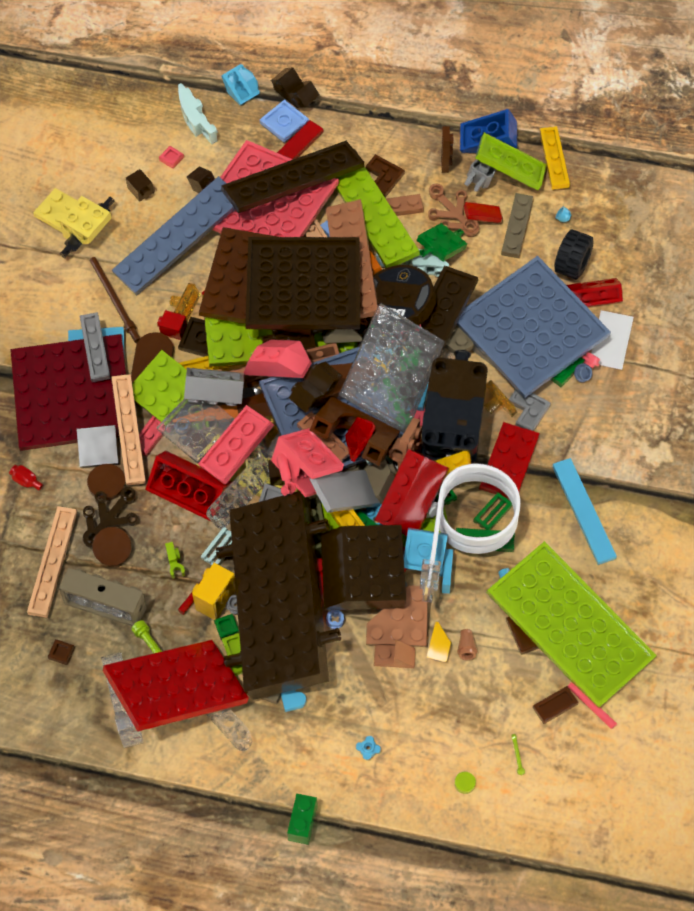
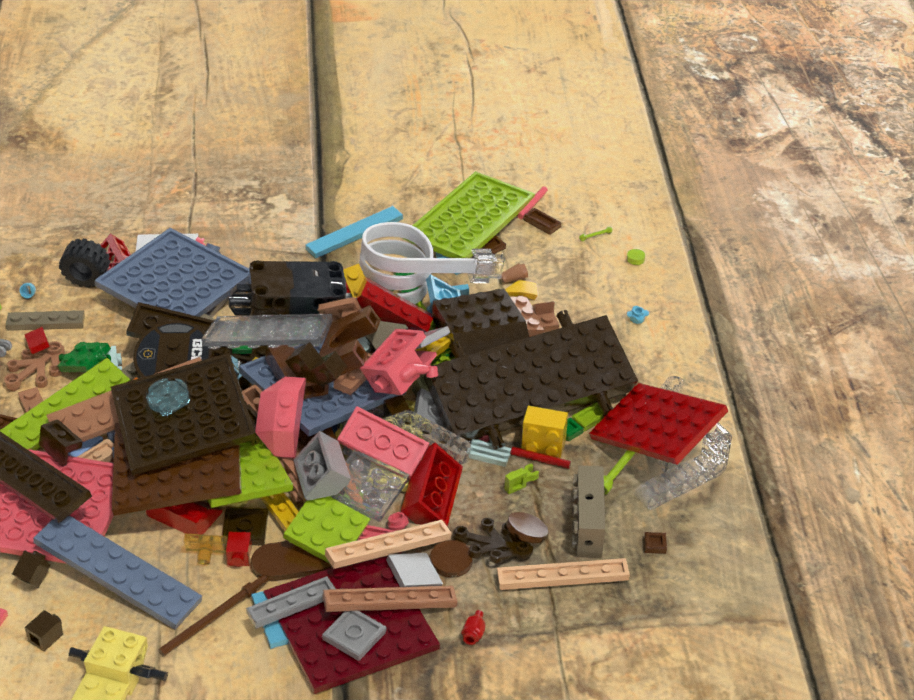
camera: 110 degrees left, 20 degrees down
(46, 384) = (354, 633): none -> light grey tile
(69, 416) = (389, 598): none -> nougat tile
(159, 447) = (397, 521): none -> coral plate
(302, 819) = (724, 335): green brick -> none
(318, 278) = (177, 397): none -> clear light blue plate
(322, 203) = (58, 441): none -> dark brown panel
(358, 436) = (352, 330): red slope -> none

